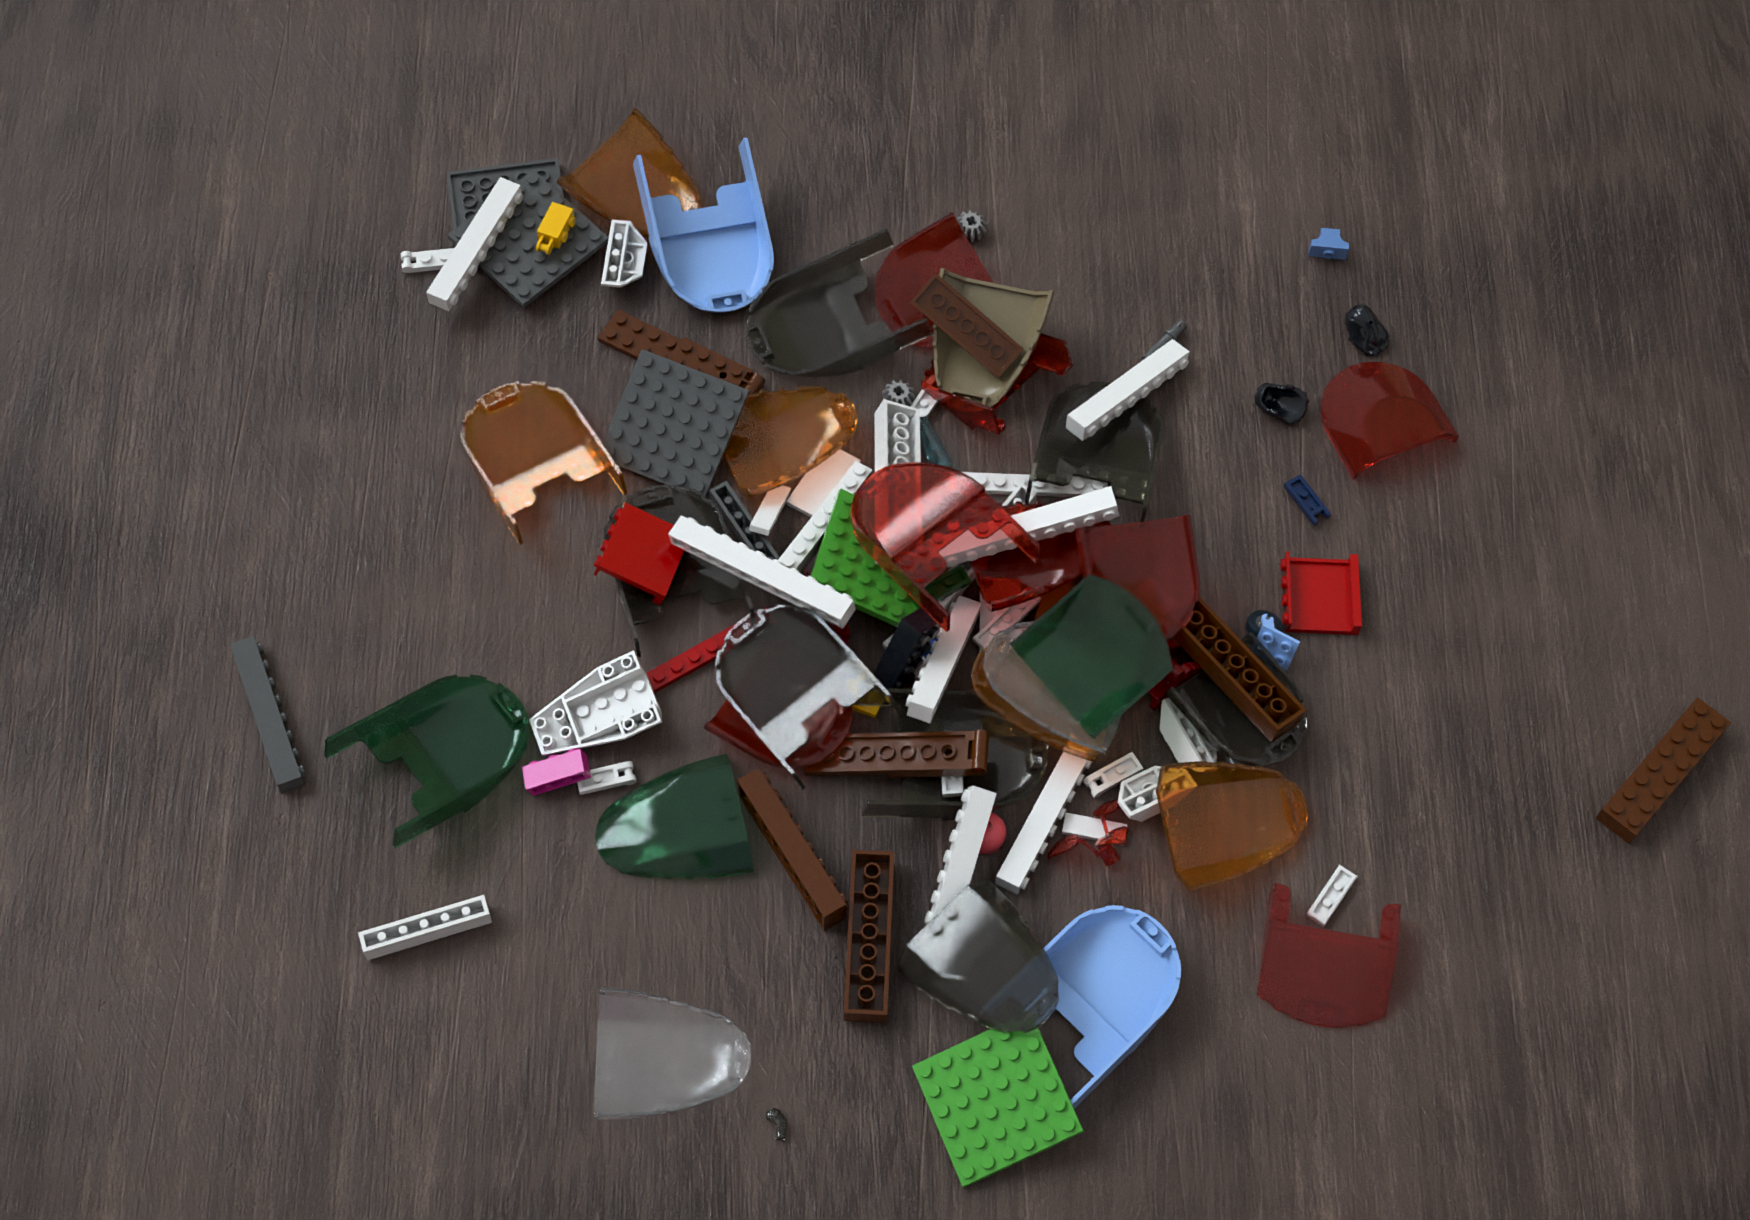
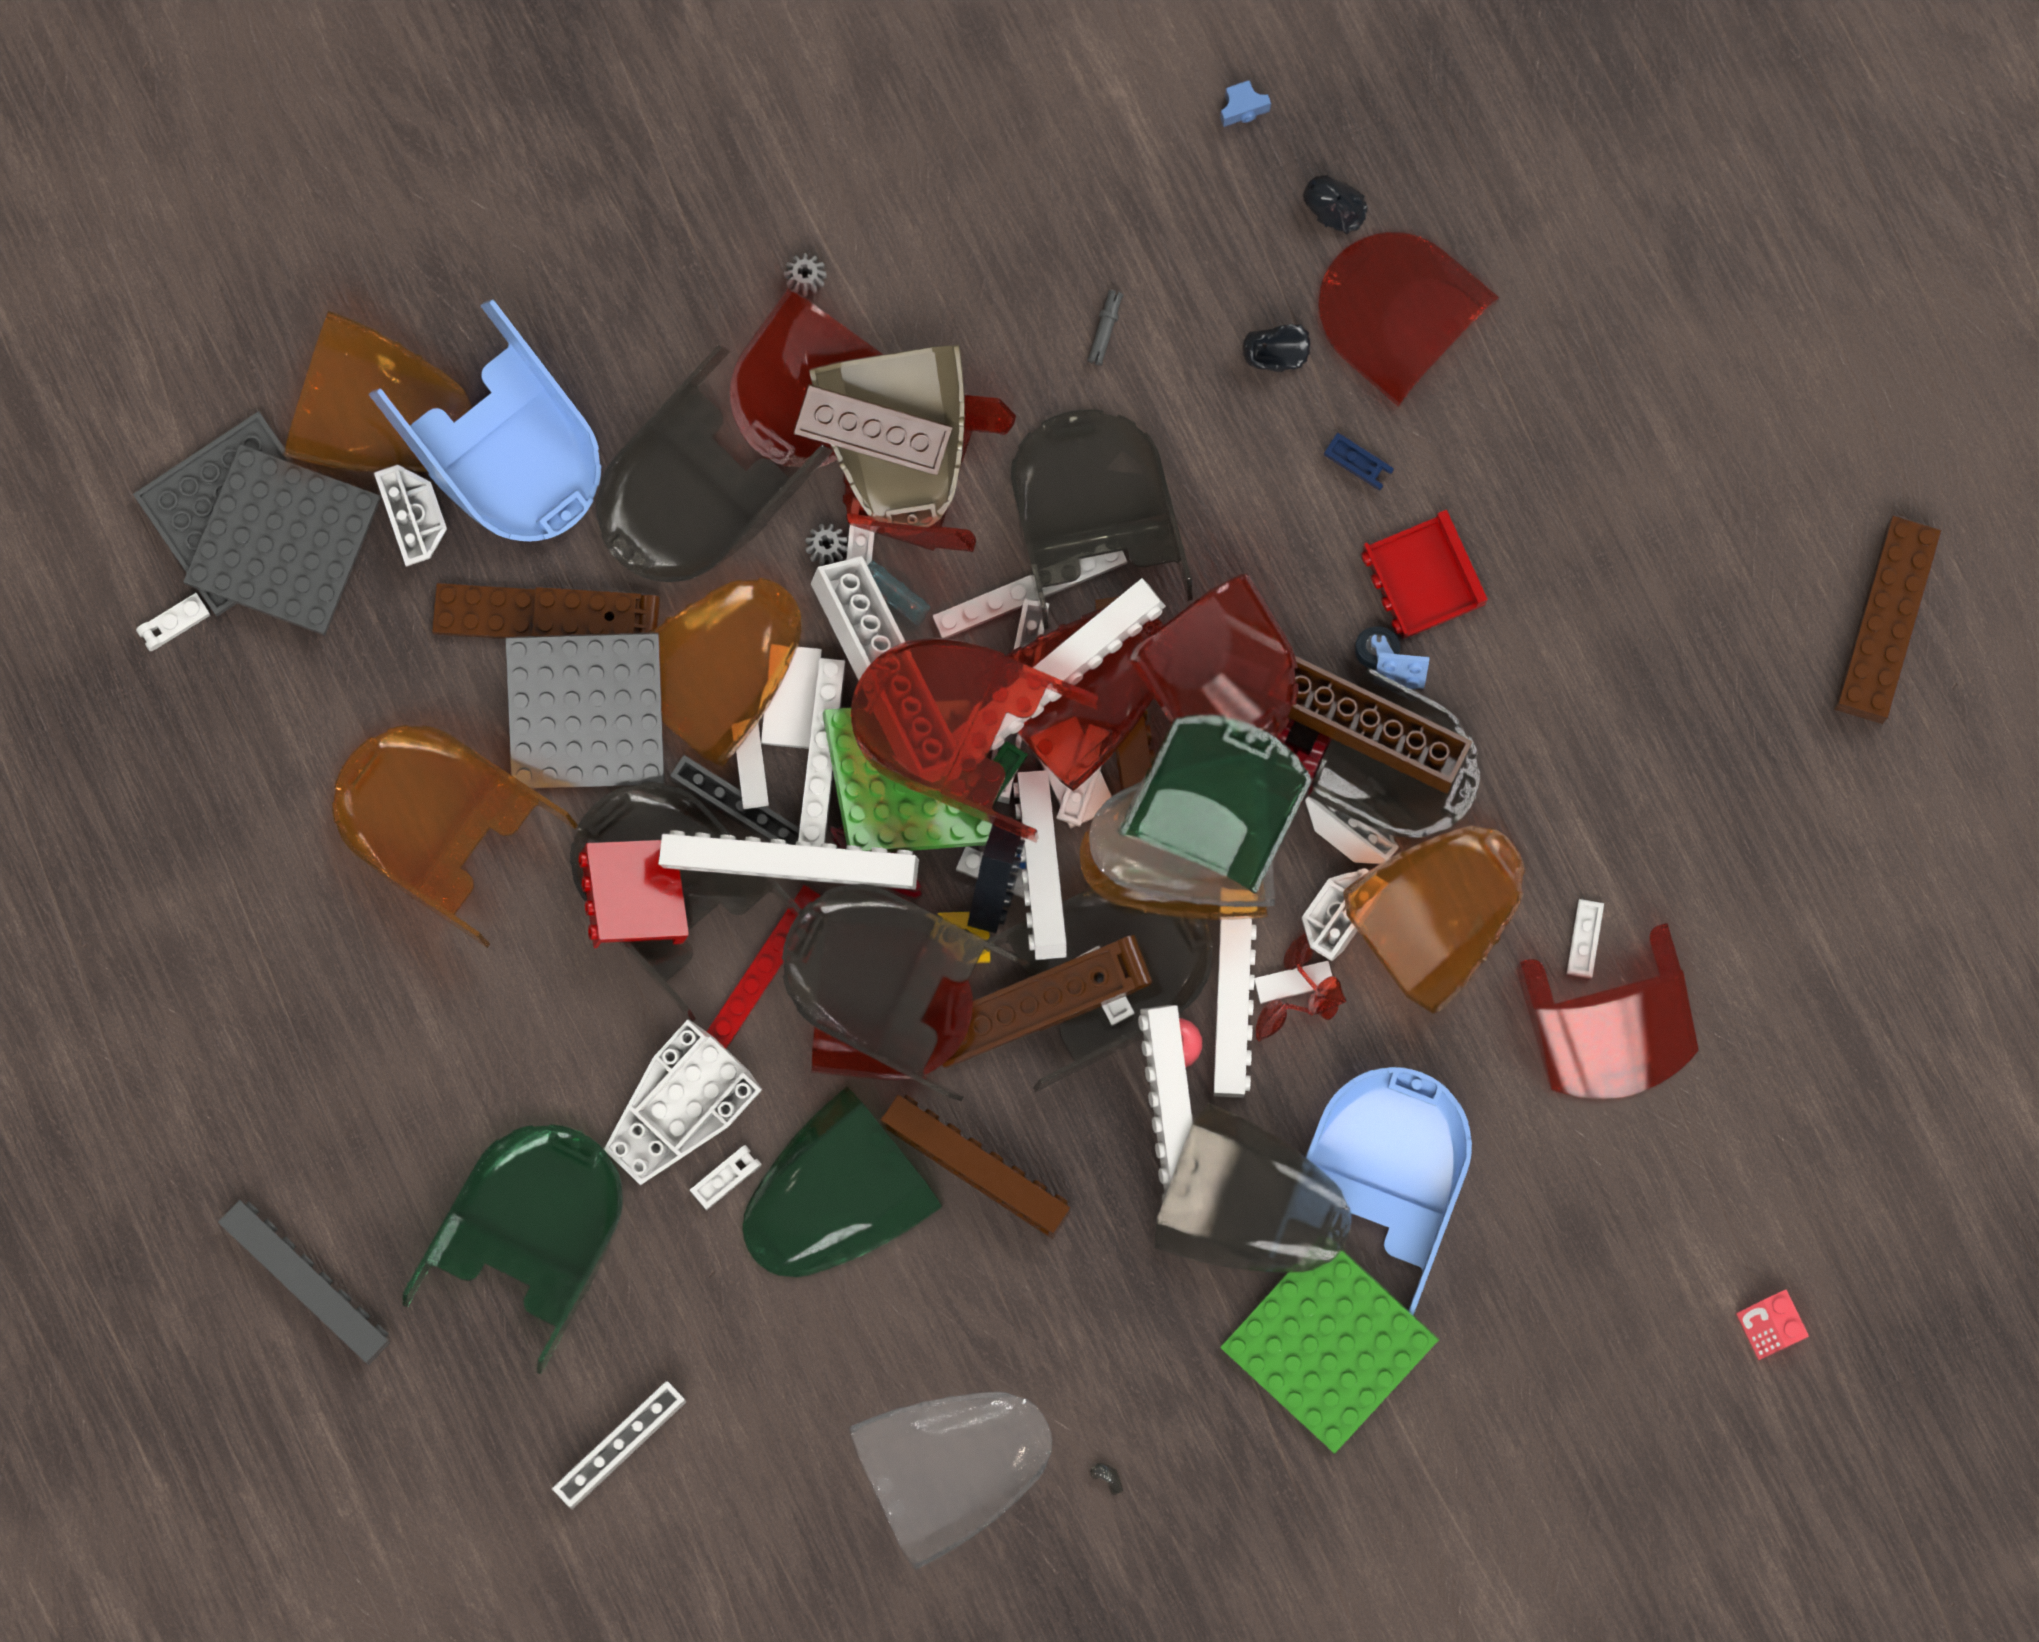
camera: 25 degrees left, 15 degrees up
(474, 244) = (228, 584): white brick -> none
(555, 227) = (313, 518): yellow brick -> none
(556, 771) = (669, 1198): brick -> none
(869, 936) = (1107, 1225): reddish brown brick -> none
(1113, 774) = (1287, 907): white plate -> none
(1127, 390) = (1093, 418): white brick -> none

